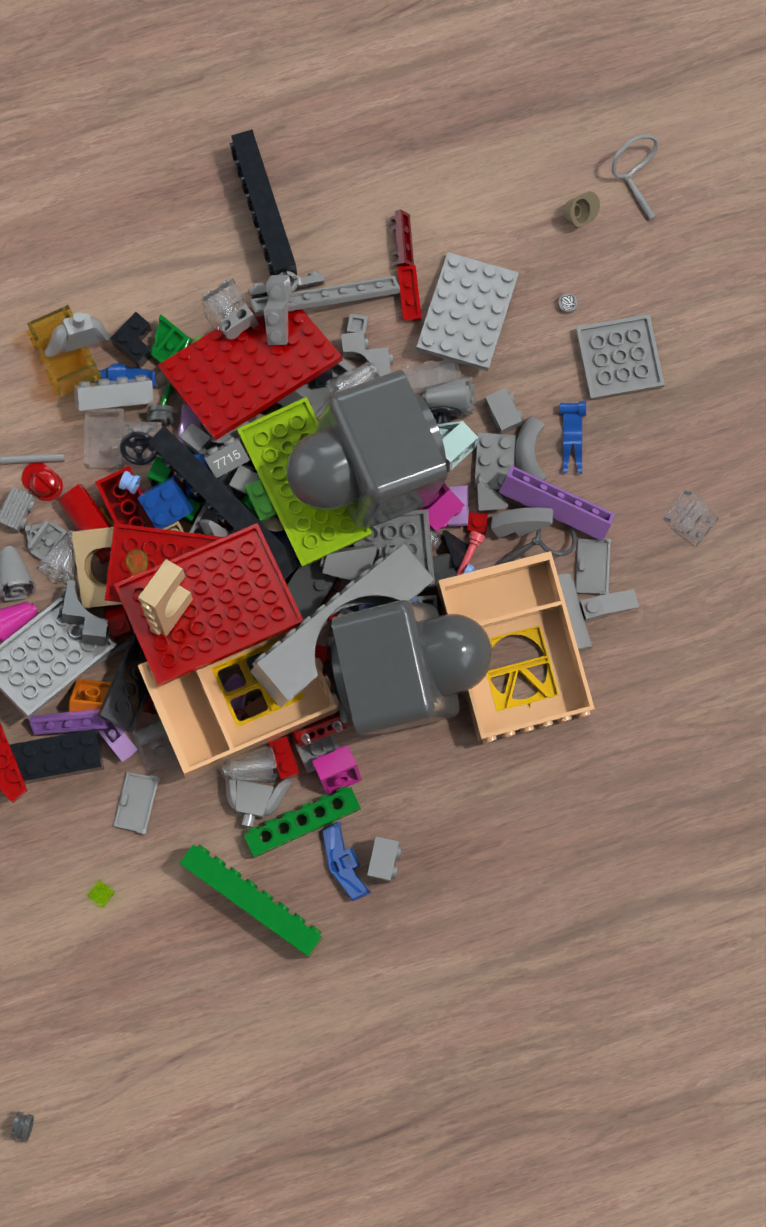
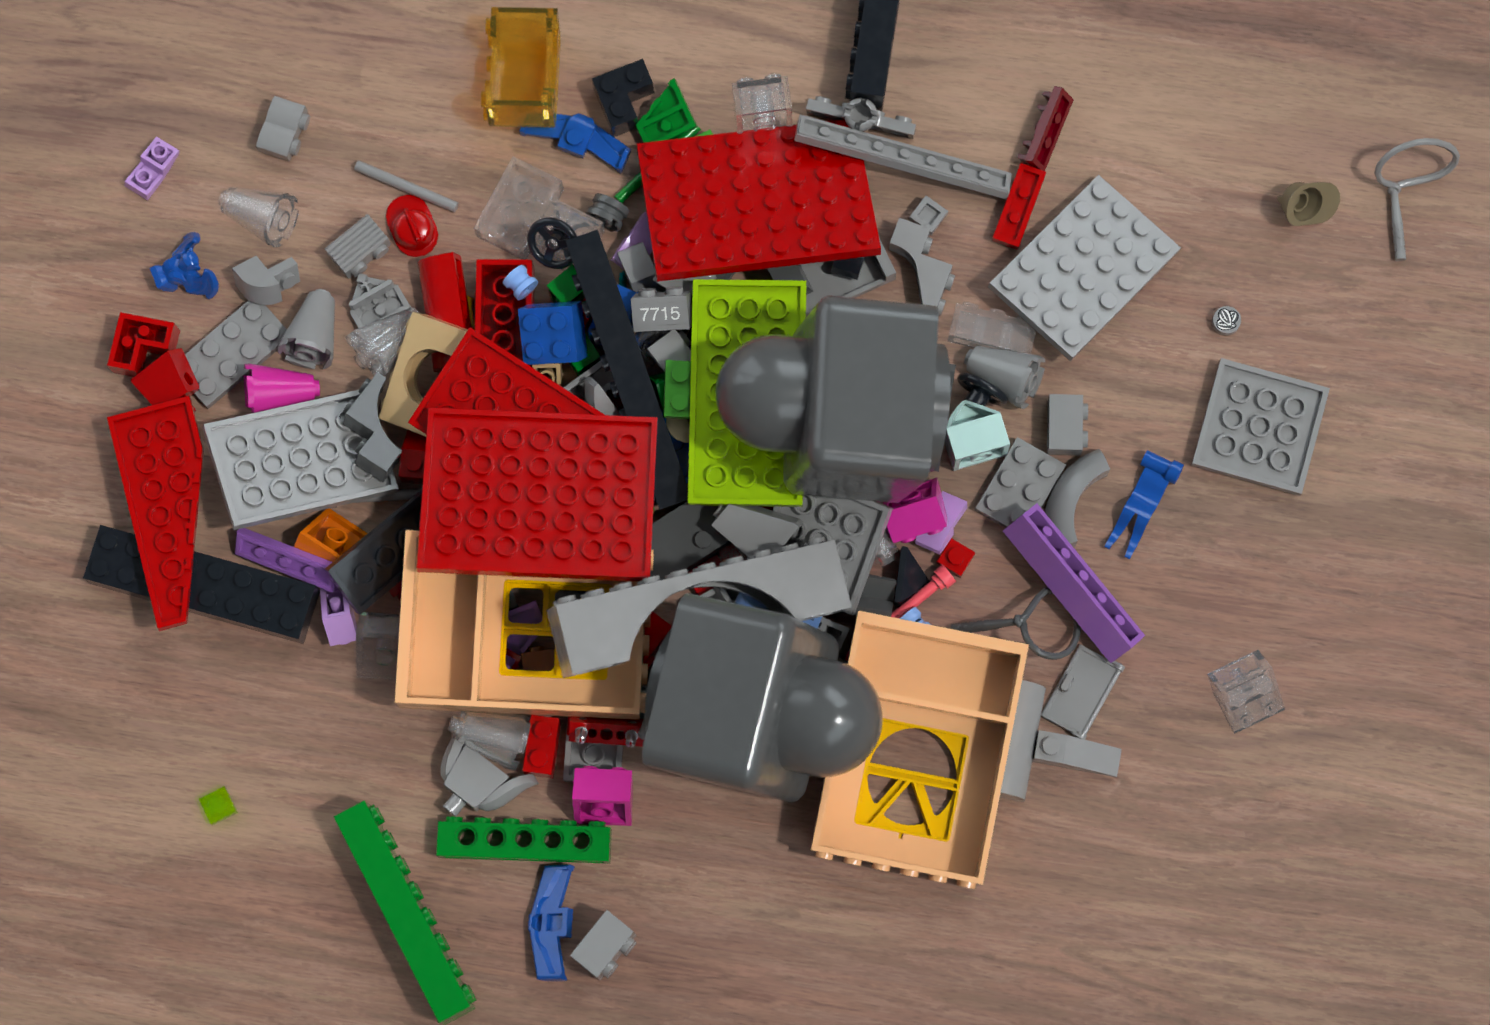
camera: 30 degrees right, 0 degrees up
(76, 333) = (549, 51): light grey torso -> none
(113, 393) = (559, 154): light grey brick -> none
(137, 561) = (474, 392): clear yellow animal -> none
(138, 796) = (326, 711): light grey door -> none
(164, 598) = (478, 460): tan arch -> none
(238, 322) = (769, 137): light grey leg -> none
(277, 309) = (824, 146): light grey arch -> none
(352, 377) = (884, 286): clear cone -> none
(488, 498) = (987, 531): light grey slope -> none
(521, 521) = (1014, 584): light grey slope -> none

